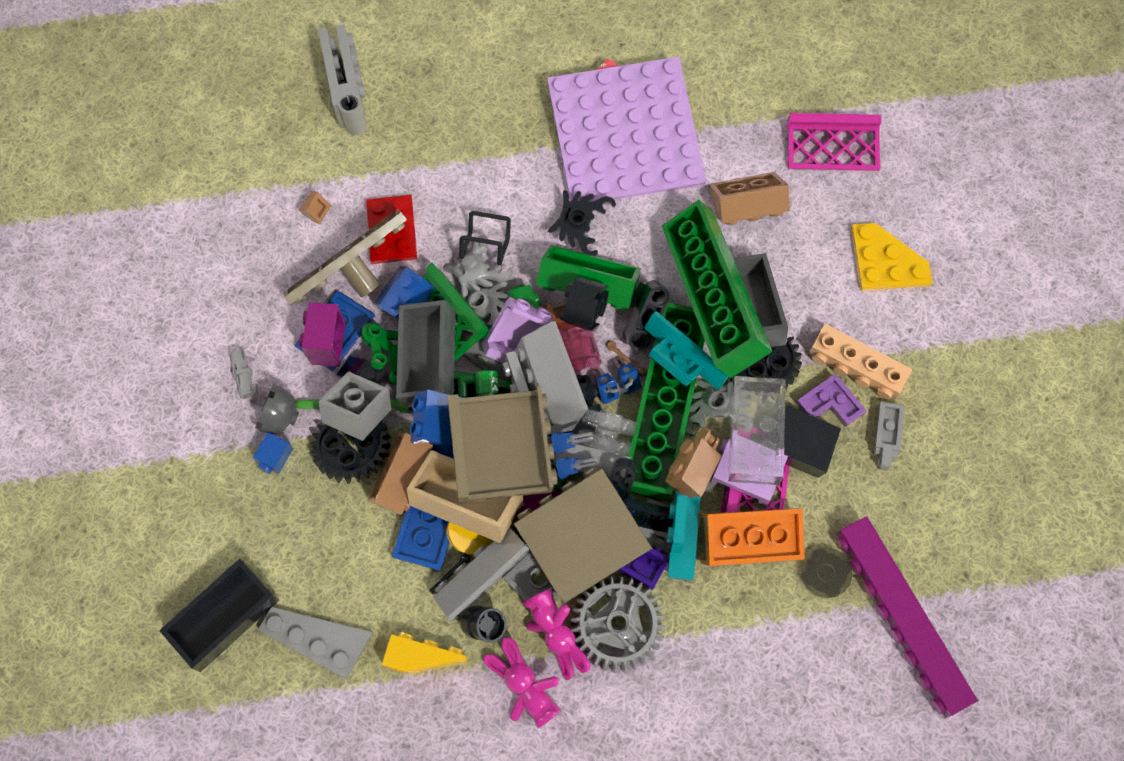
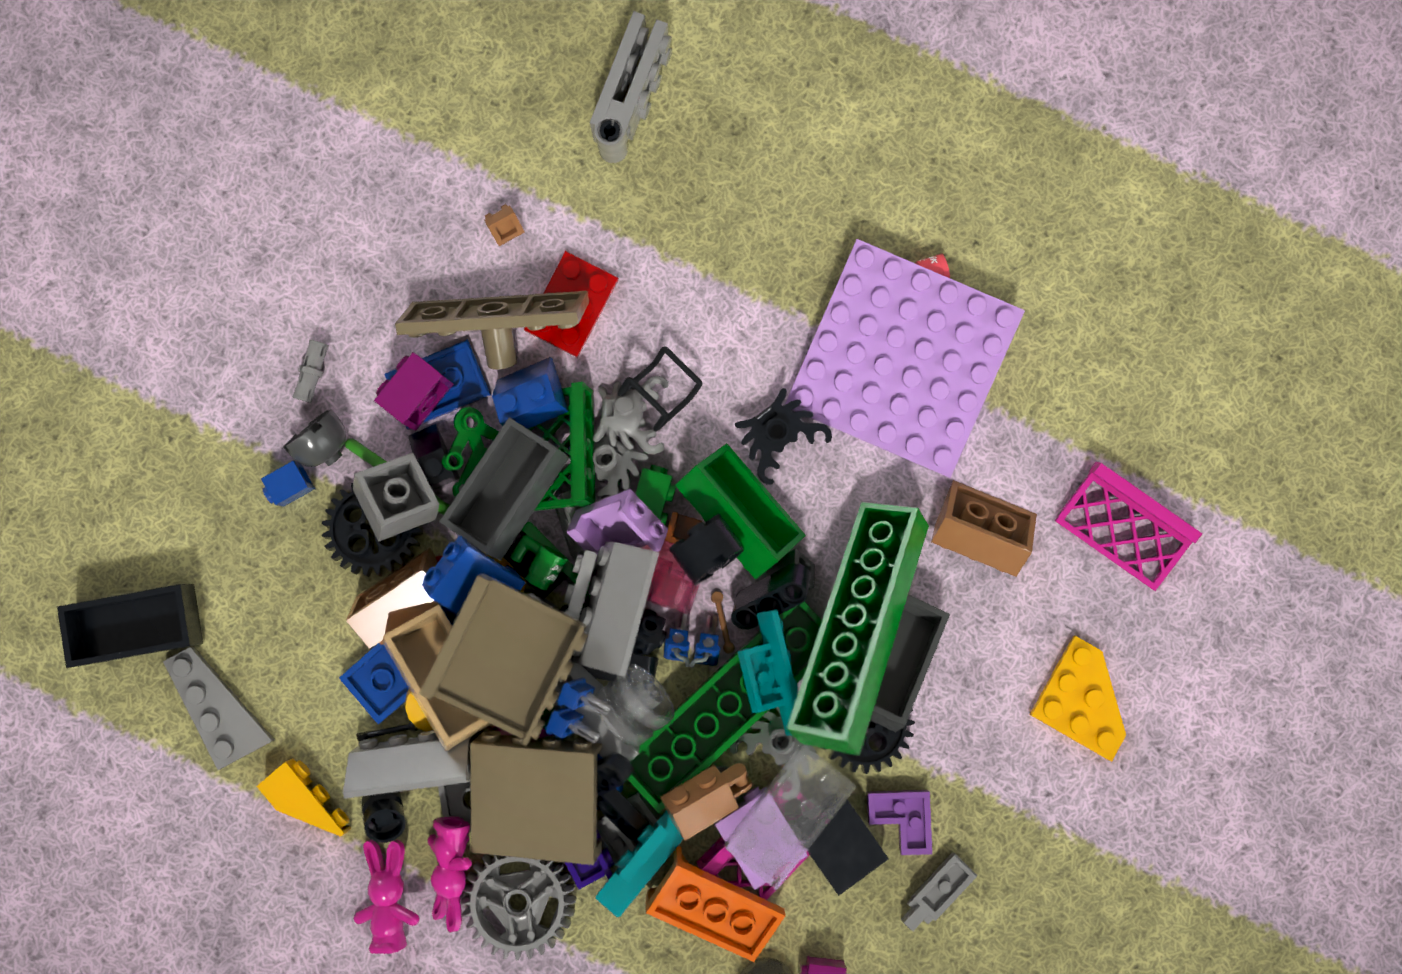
camera: 30 degrees right, 15 degrees up
(859, 362) = (965, 796): light nougat brick -> none

